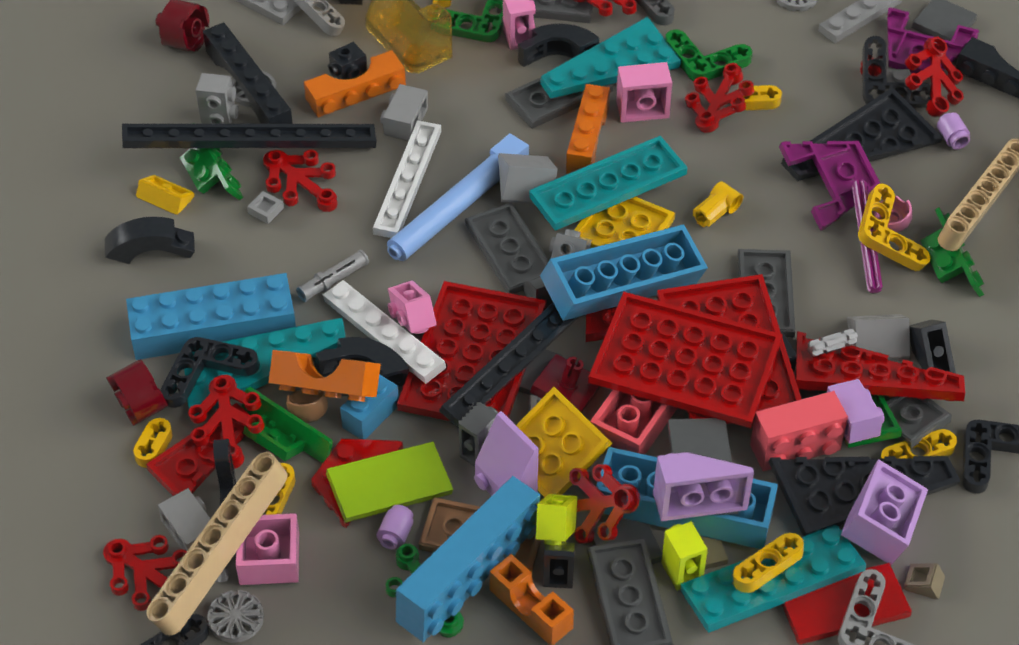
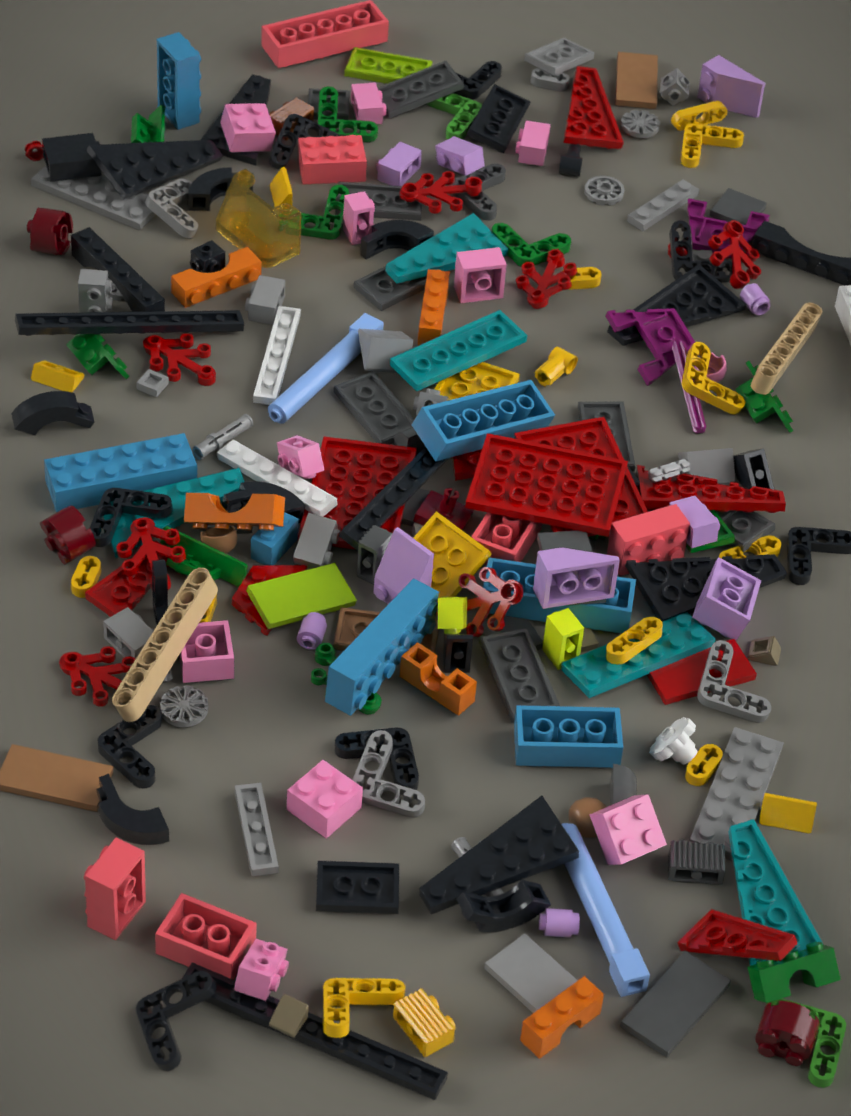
camera: 10 degrees left, 5 degrees down
(414, 415) = (316, 542): none -> light grey brick

